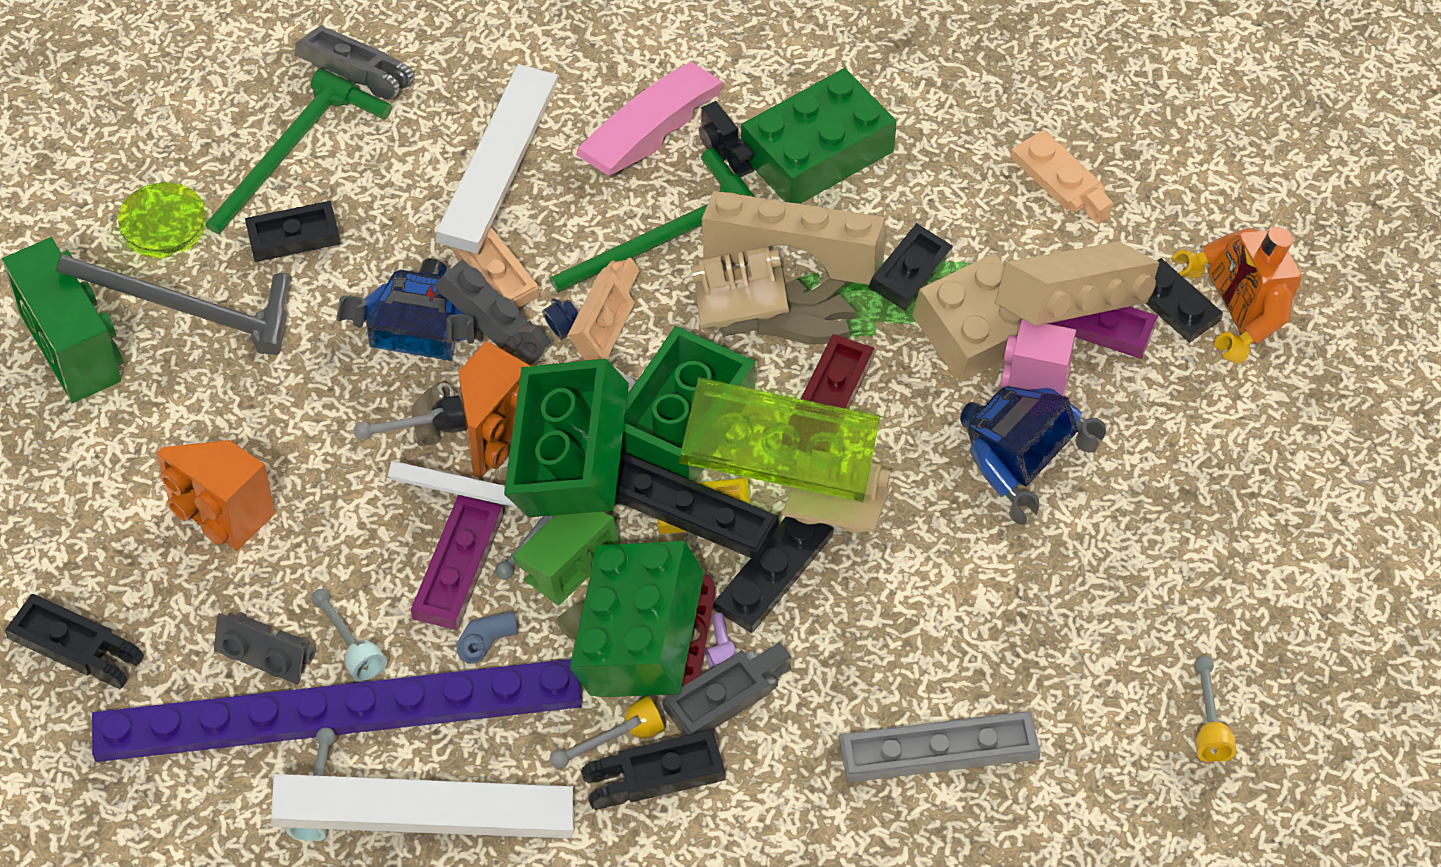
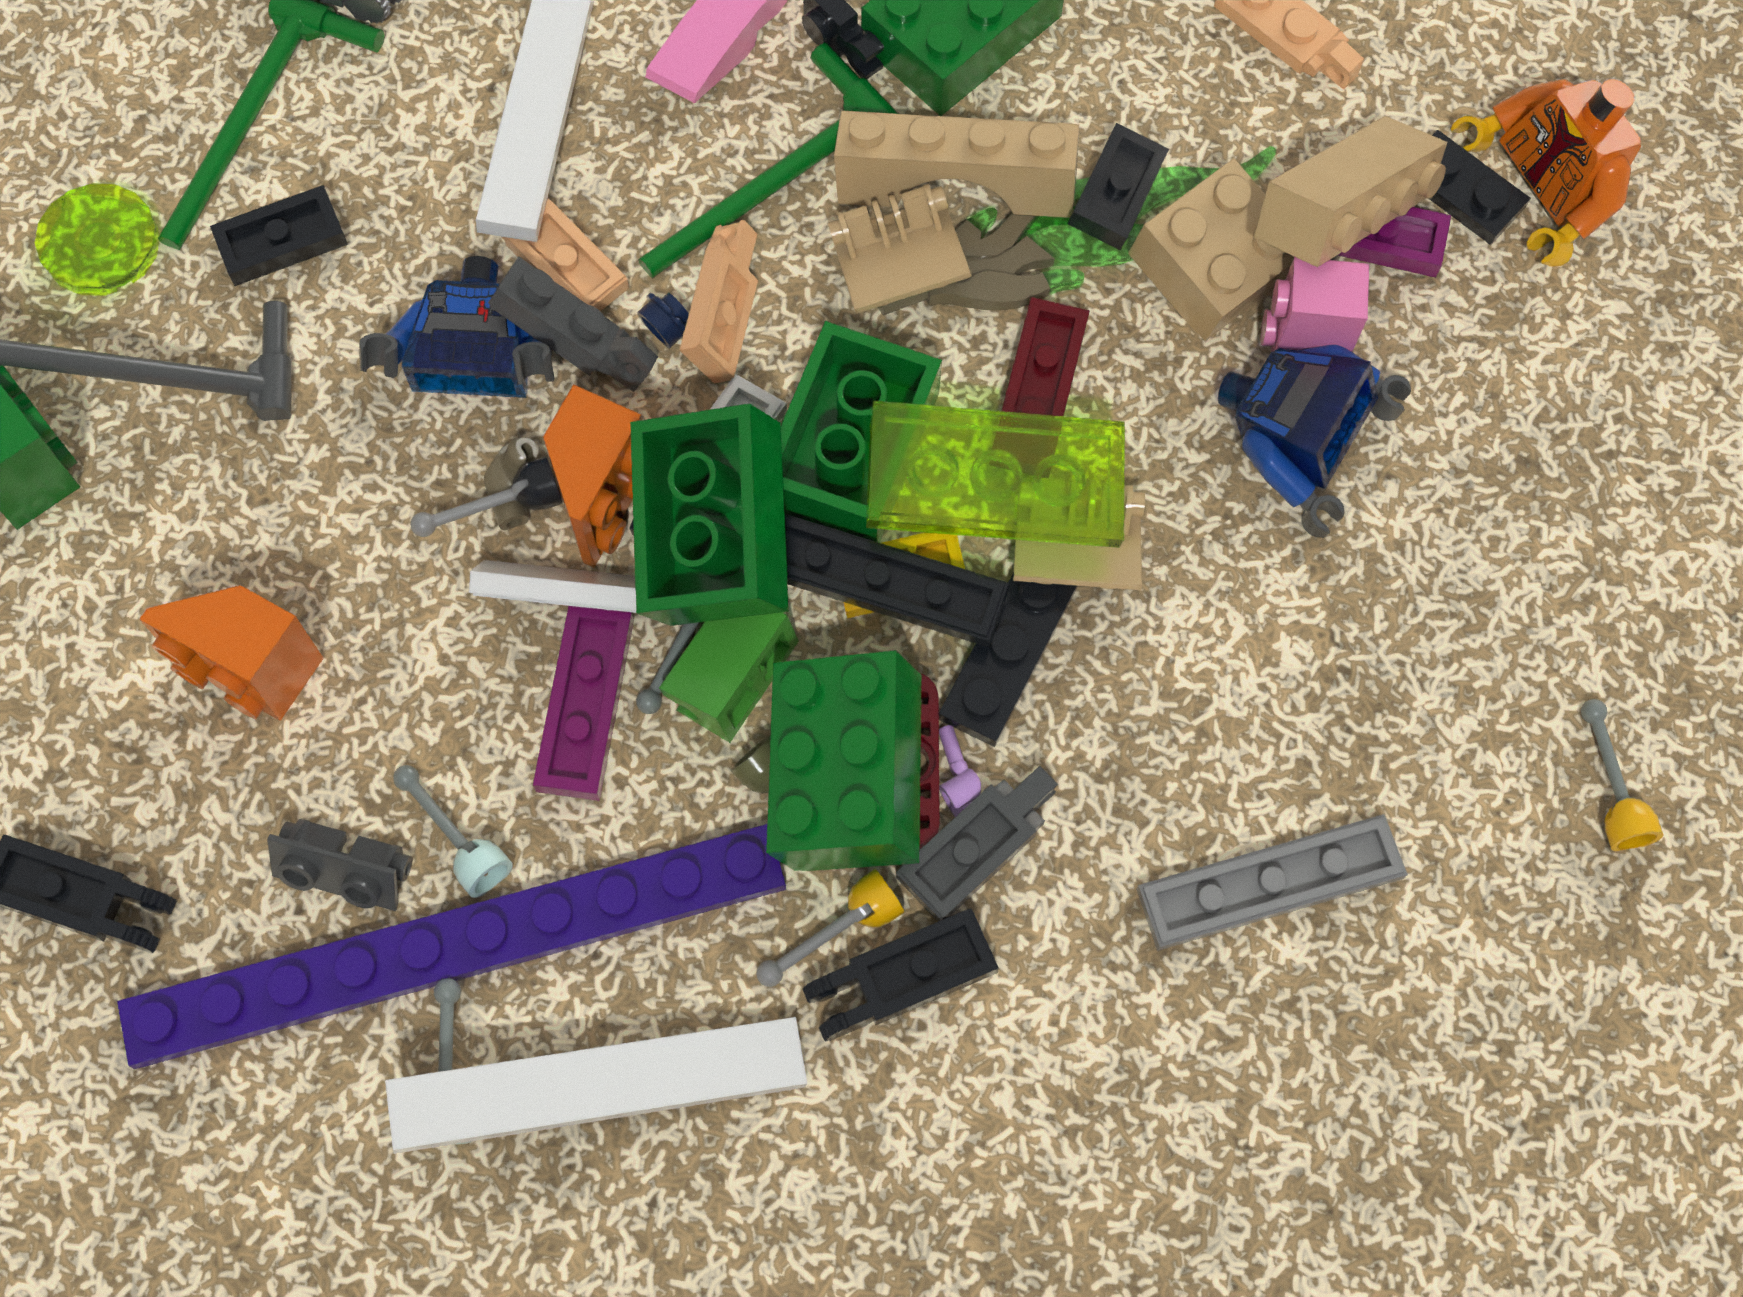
camera: 10 degrees left, 15 degrees up
(481, 634) = (632, 804): sand blue arm -> none

